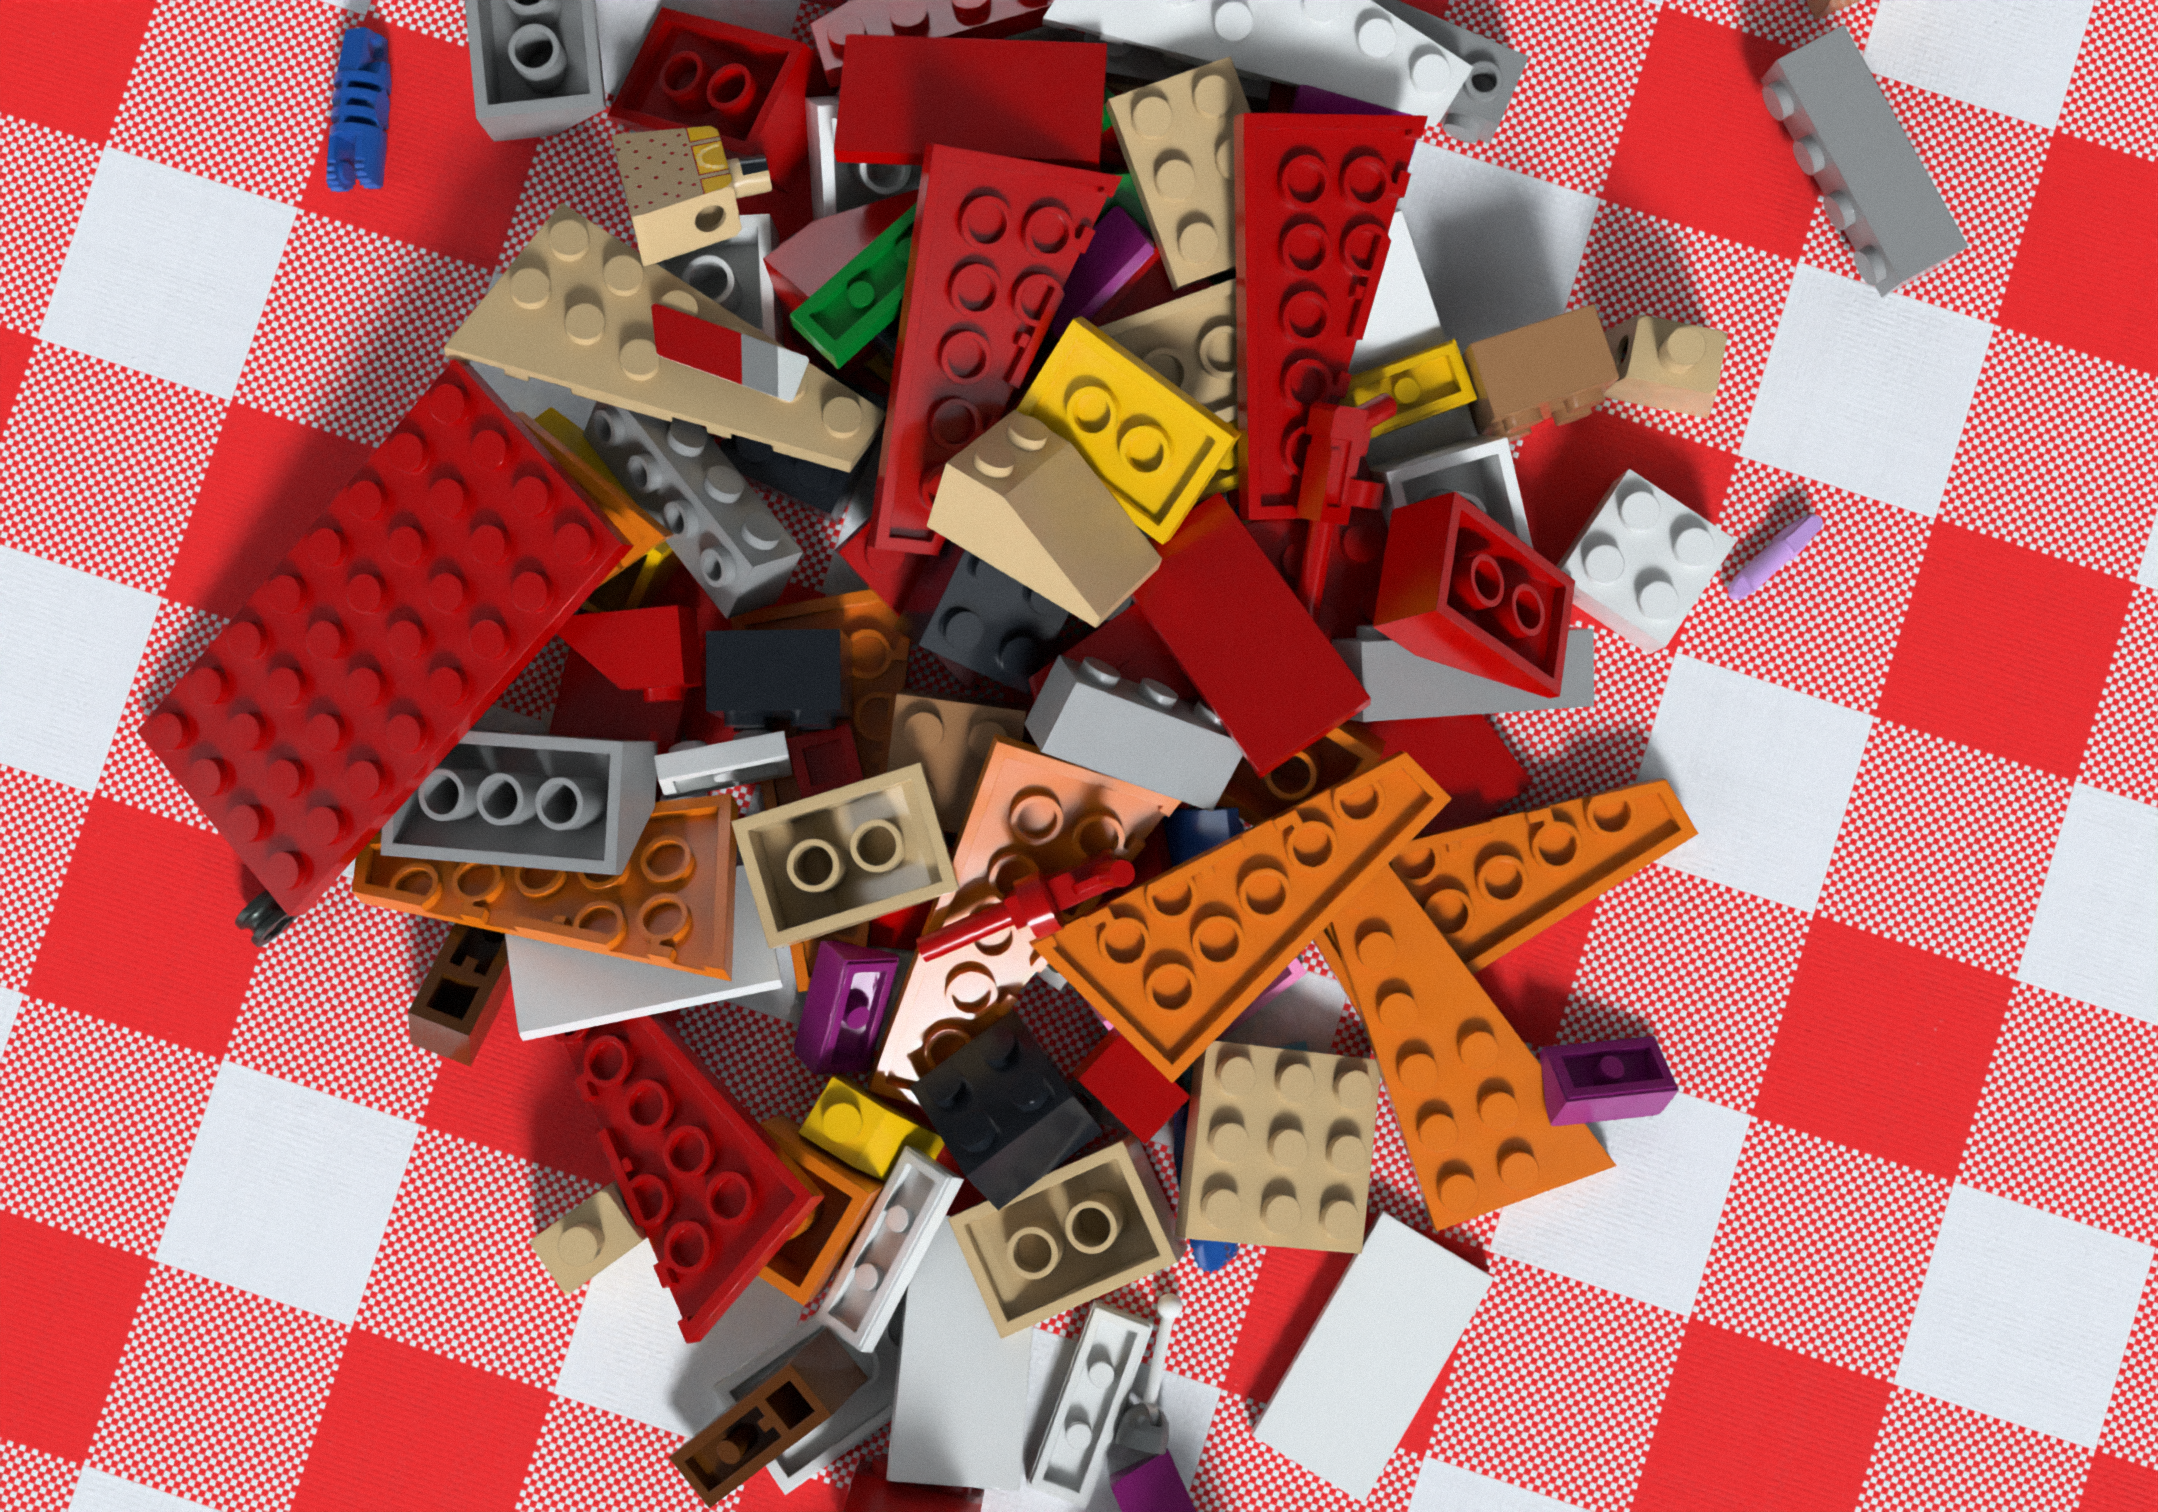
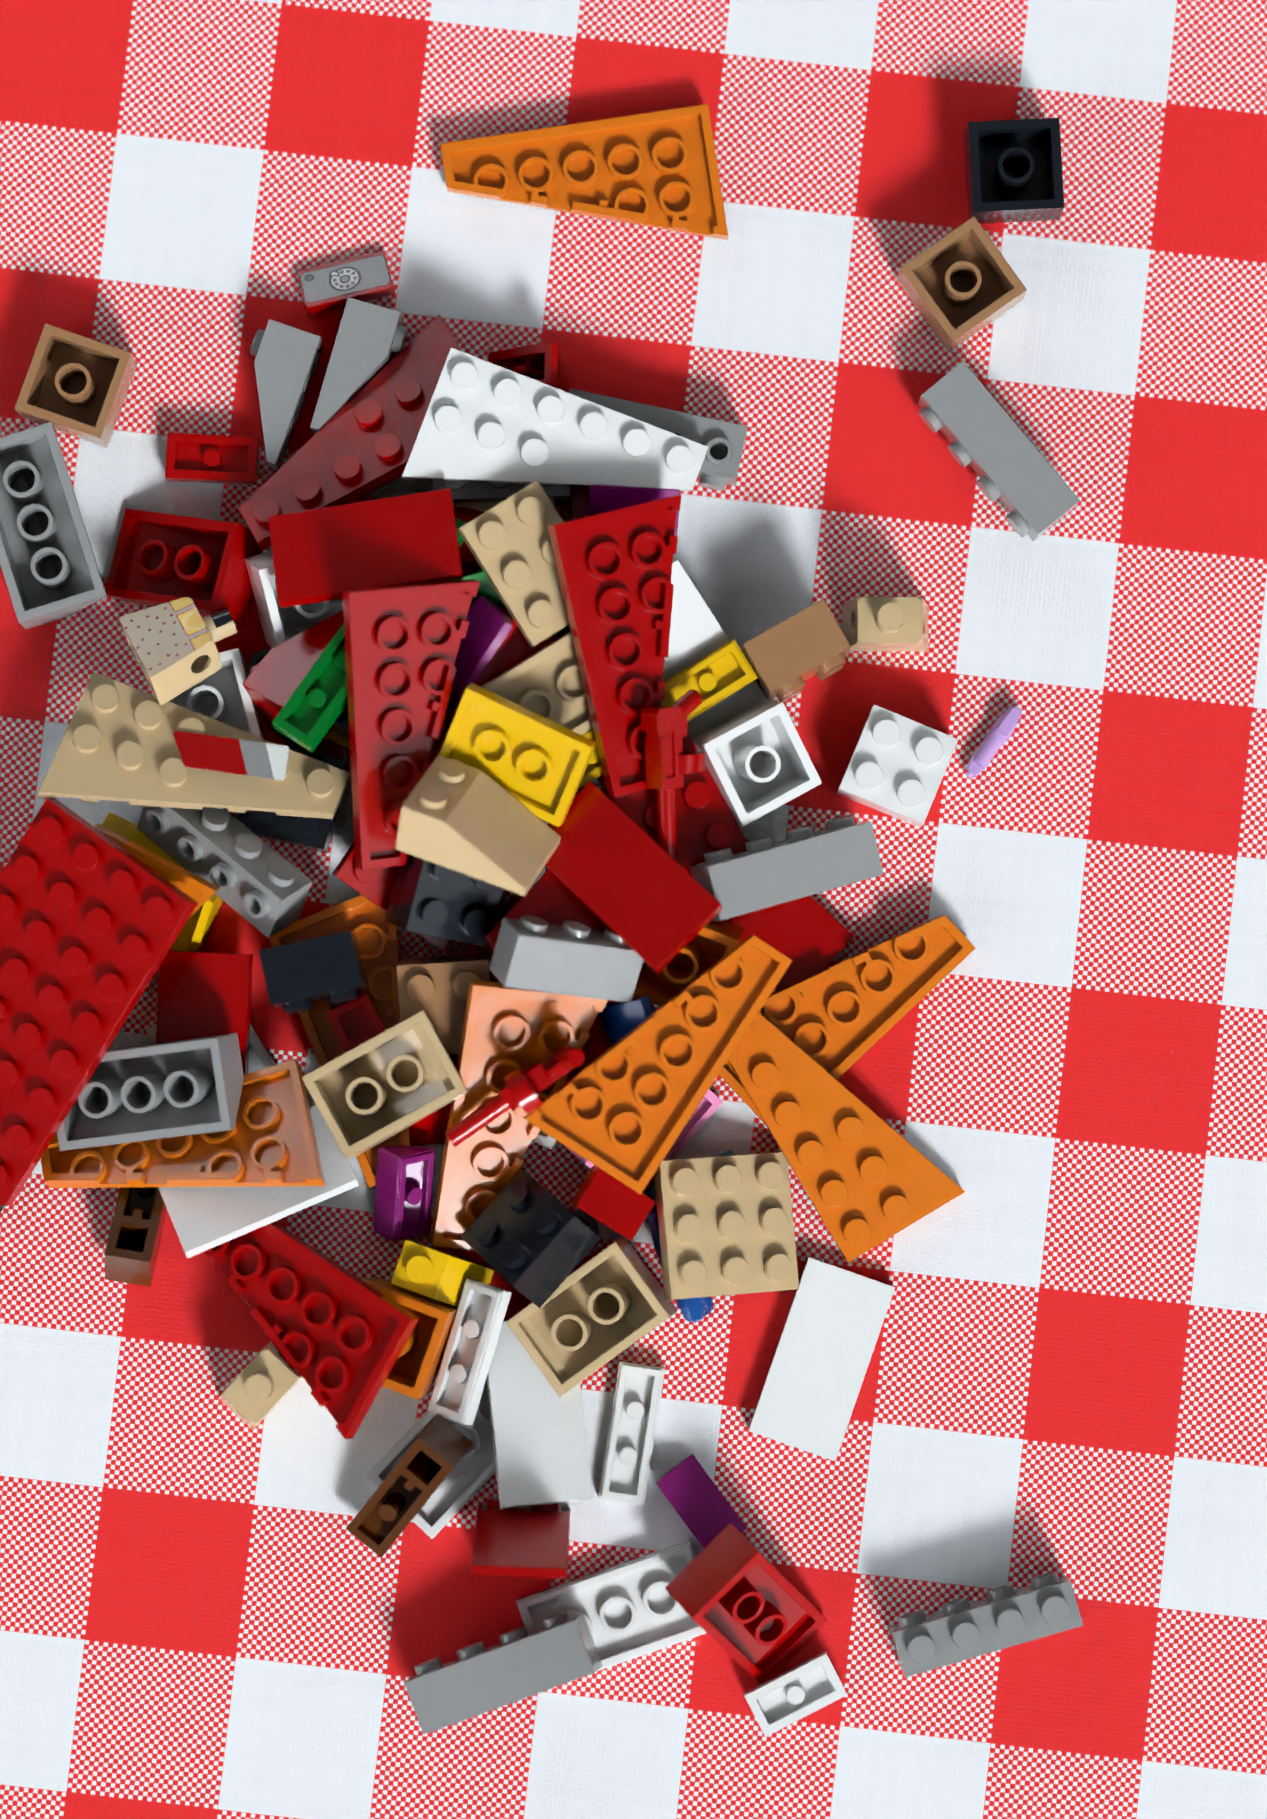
camera: 15 degrees left, 0 degrees up
(641, 648) = (212, 971): red slope -> none
(702, 768) = (270, 1045): white plate -> none
(1145, 1424) = (672, 1438): hinge -> none
(1473, 596) = (780, 819): red slope -> none
(1605, 1080) = (945, 1134): magenta slope -> none

